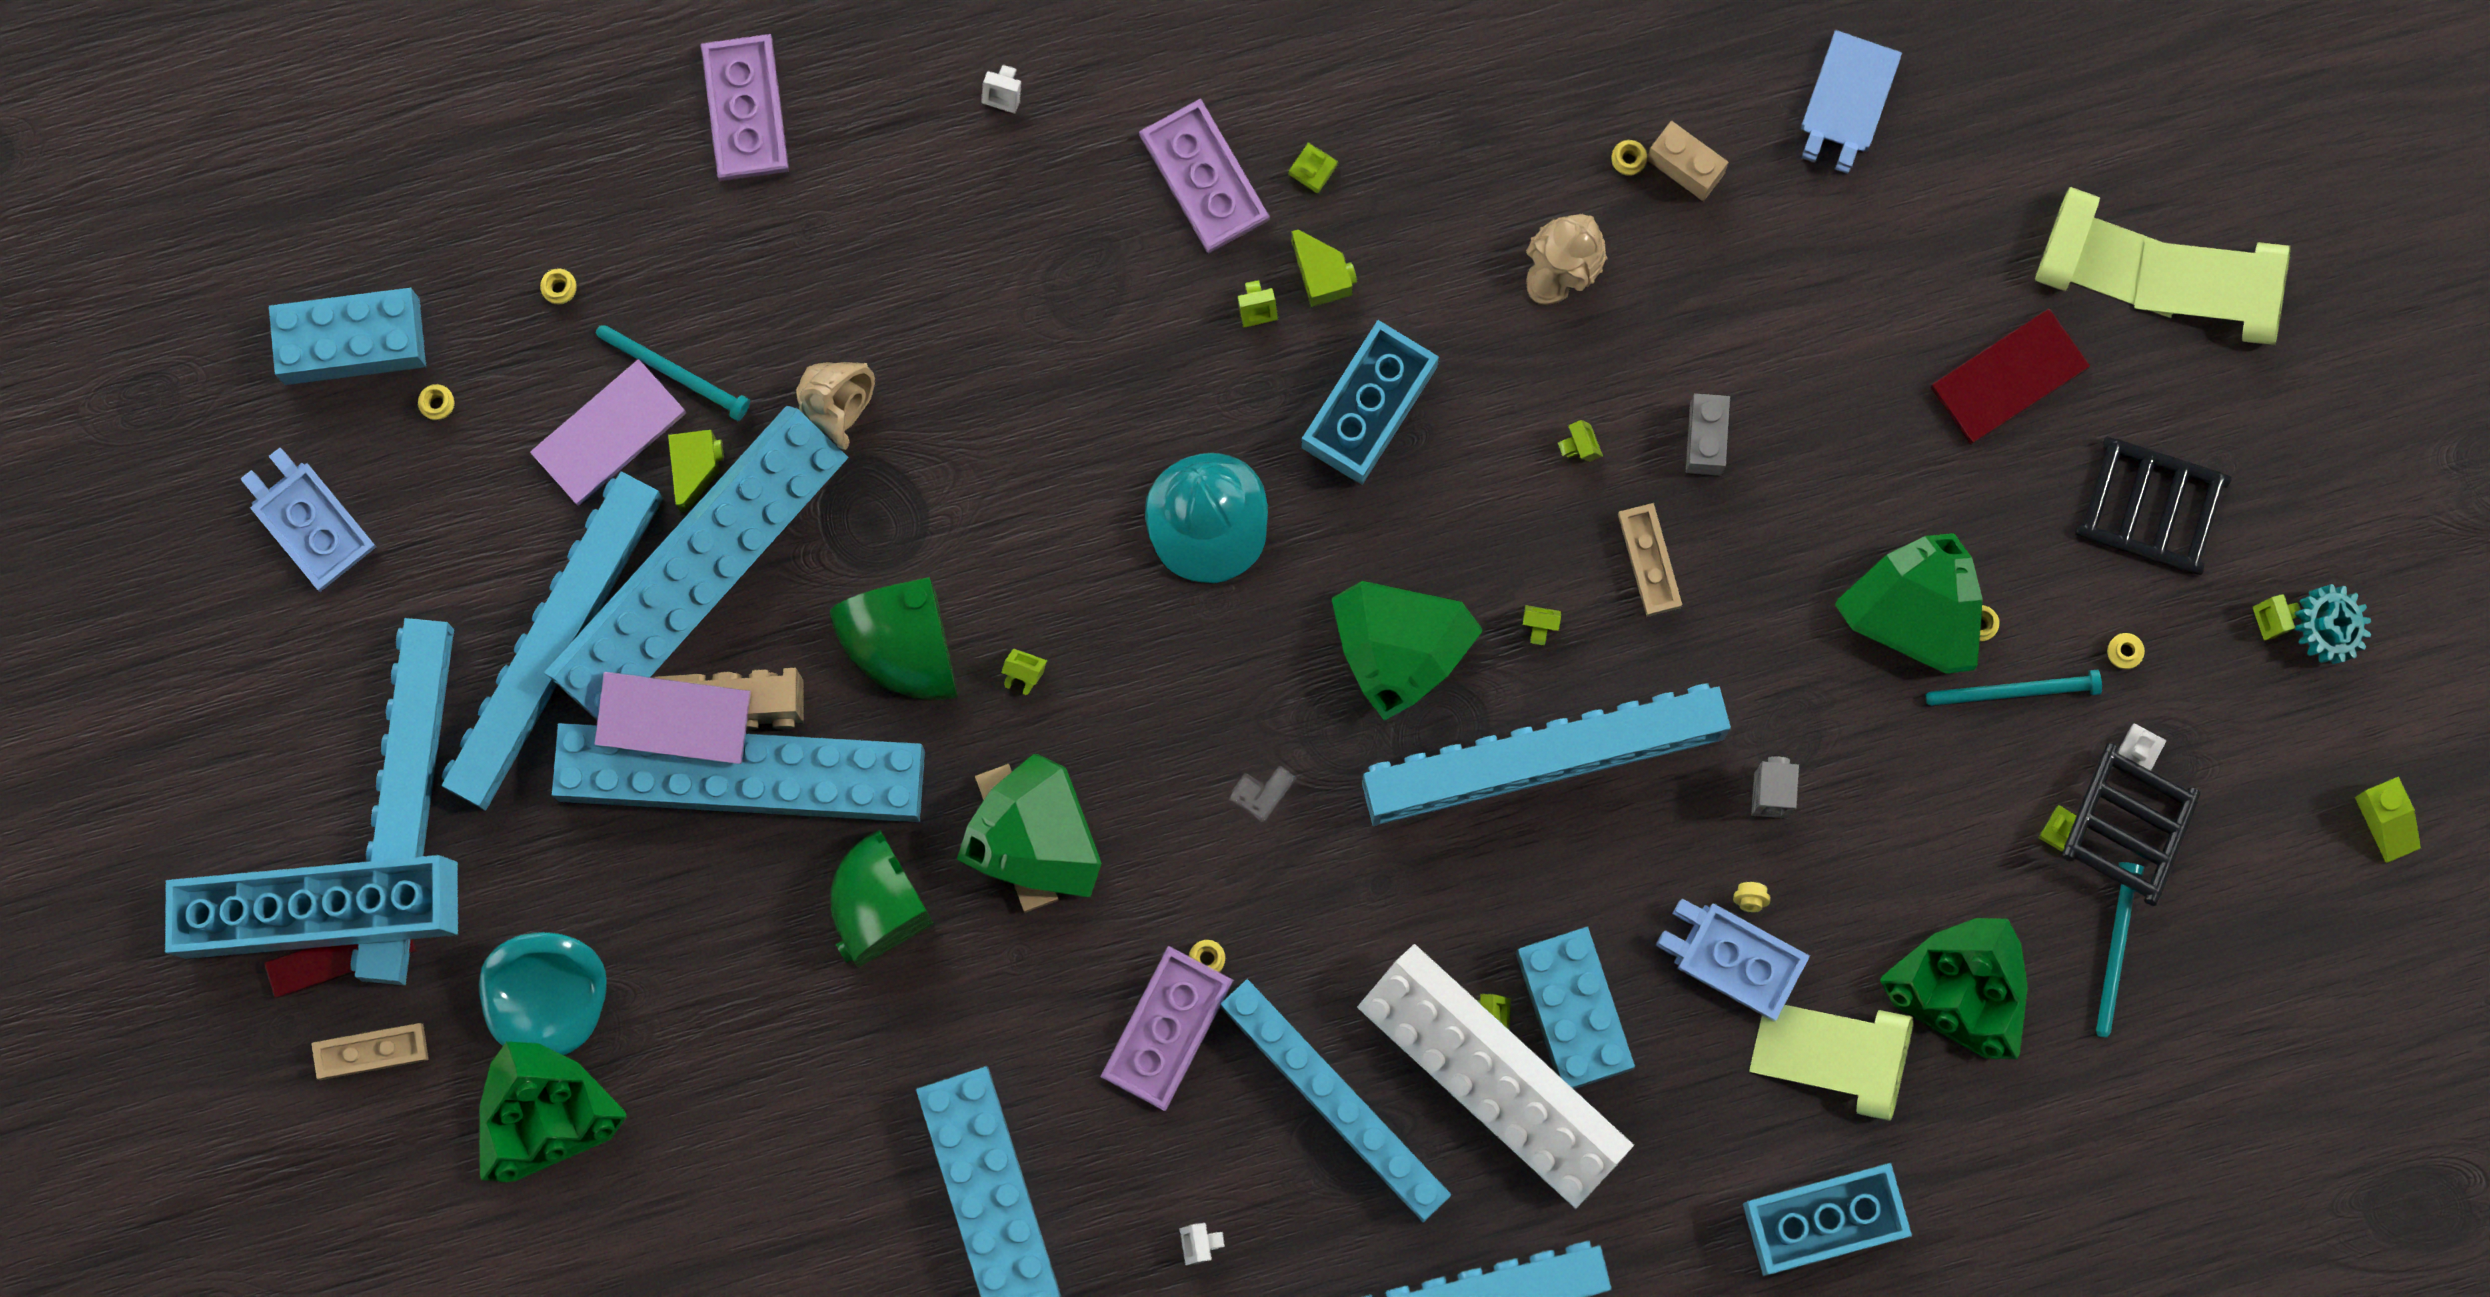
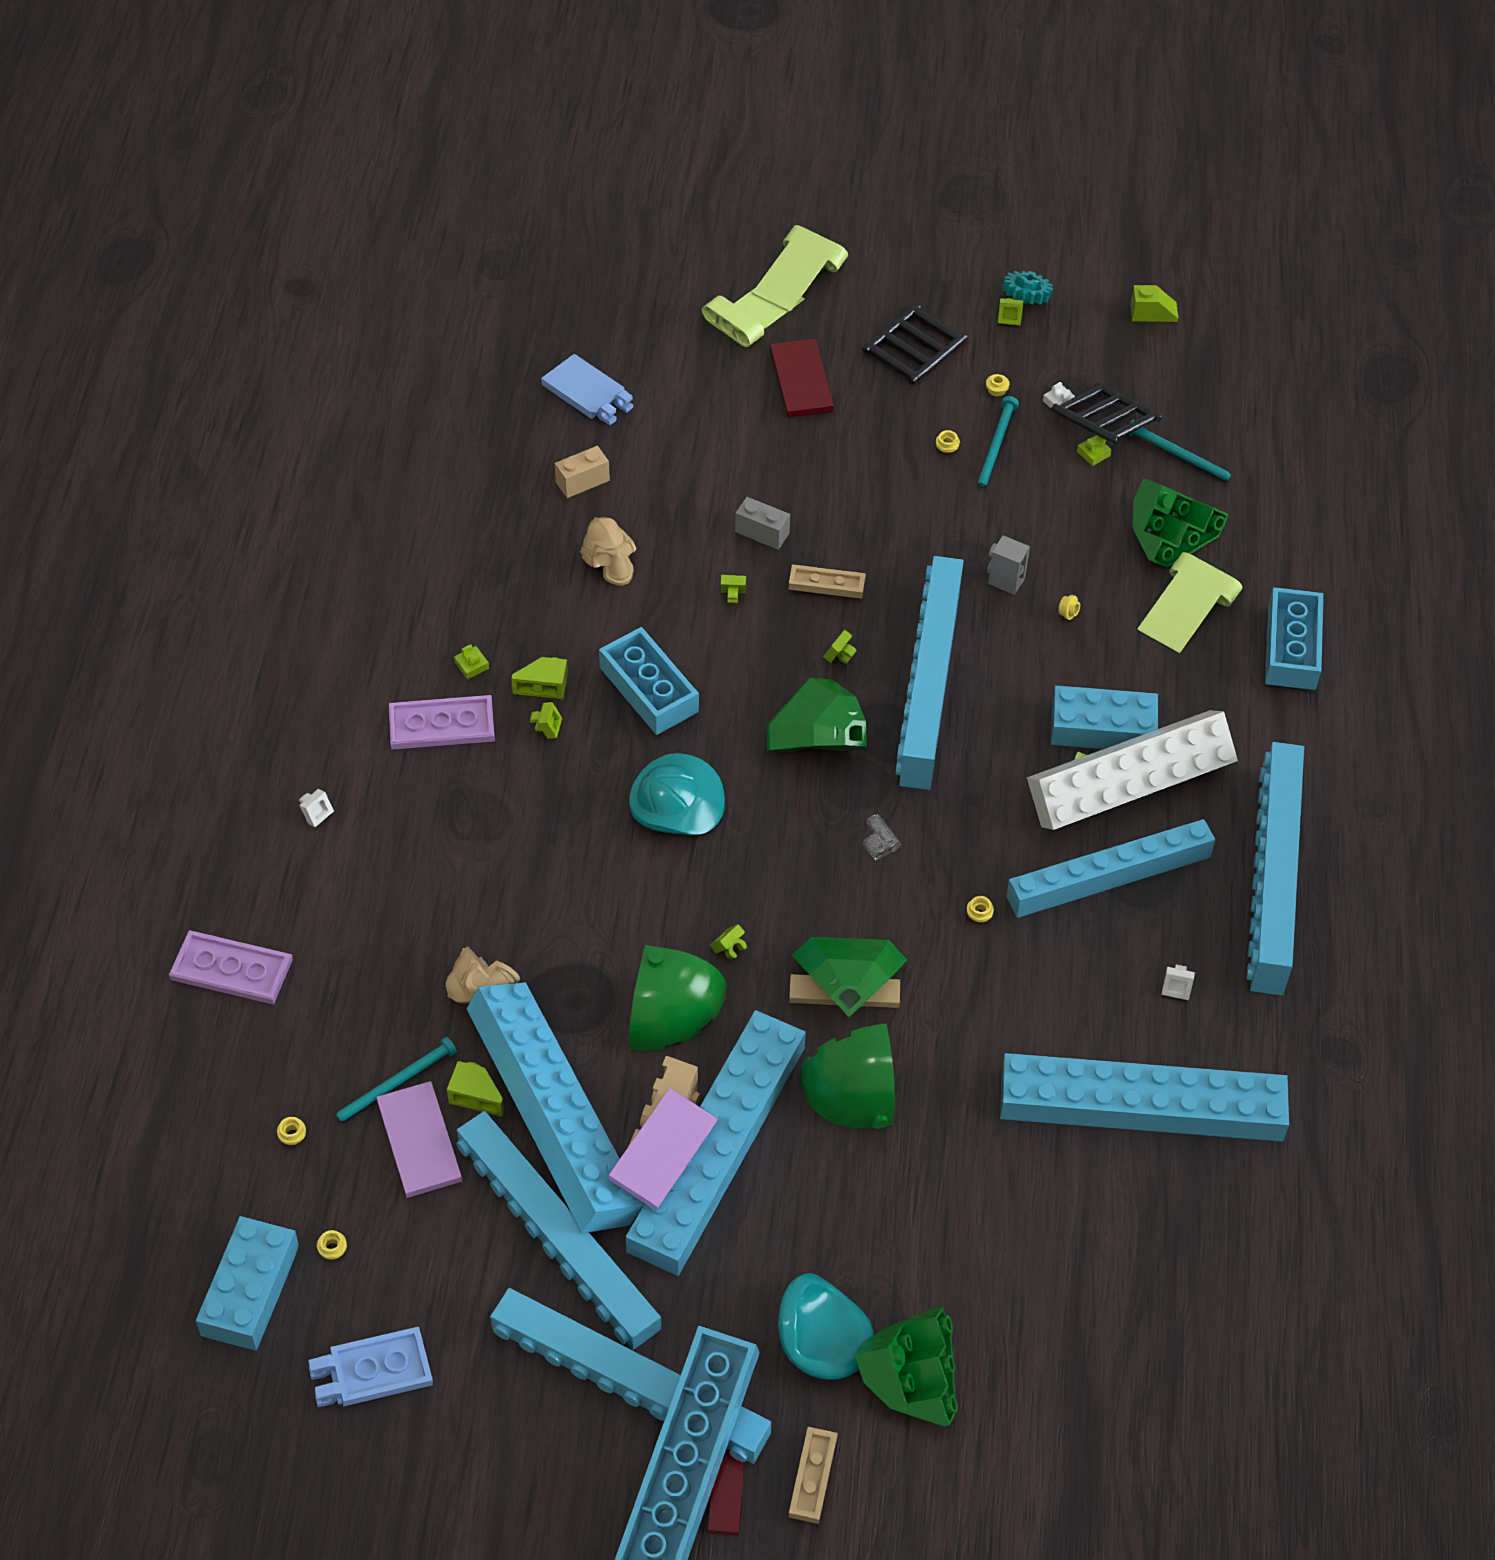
camera: 70 degrees left, 25 degrees down
(1167, 1028) = (1020, 947): lavender tile -> none
(1629, 147) = (561, 501): light yellow plate -> none
(1735, 958) = (1103, 630): light blue tile -> none
(1921, 603) = (924, 456): green brick -> none

